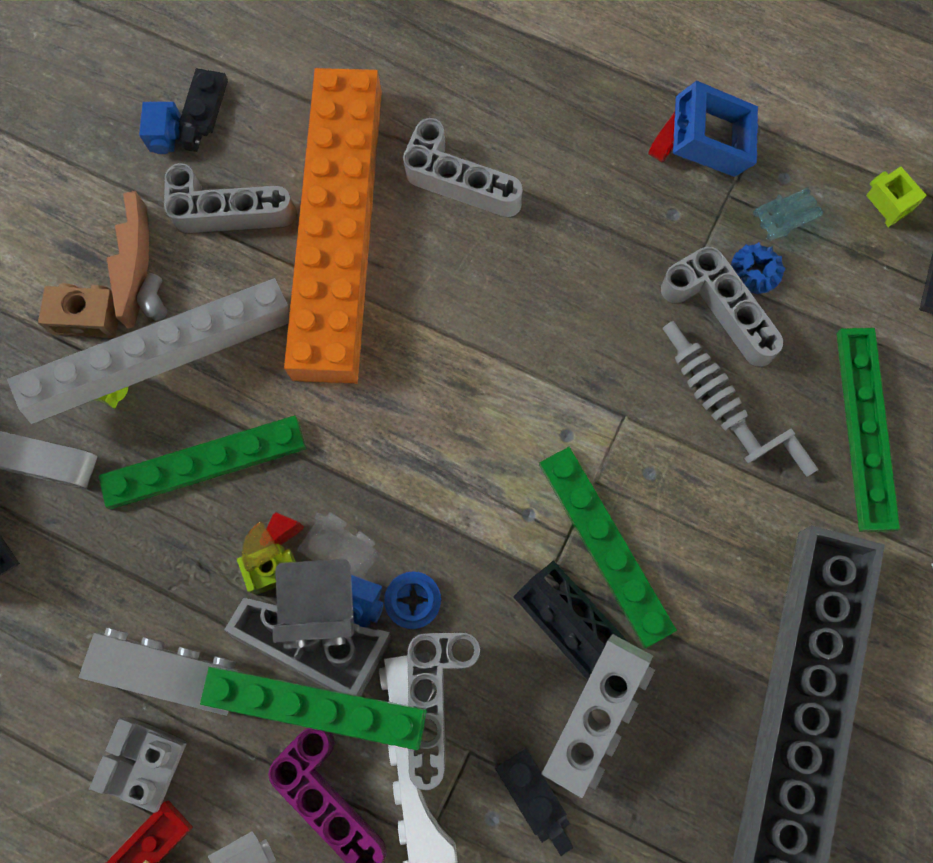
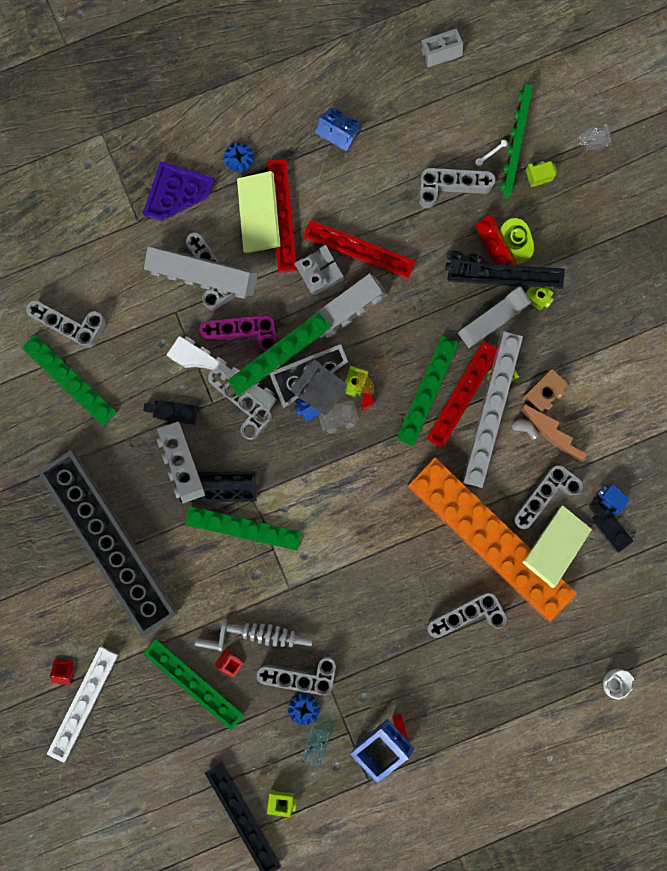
camera: 125 degrees right, 10 degrees up
(63, 735) = (359, 249): none -> red plate
(169, 411) = (462, 395): none -> red plate
(275, 135) = (557, 546): none -> yellowish green tile
(400, 589) = (281, 429): blue gear -> none
(795, 408) = (229, 663): none -> red slope

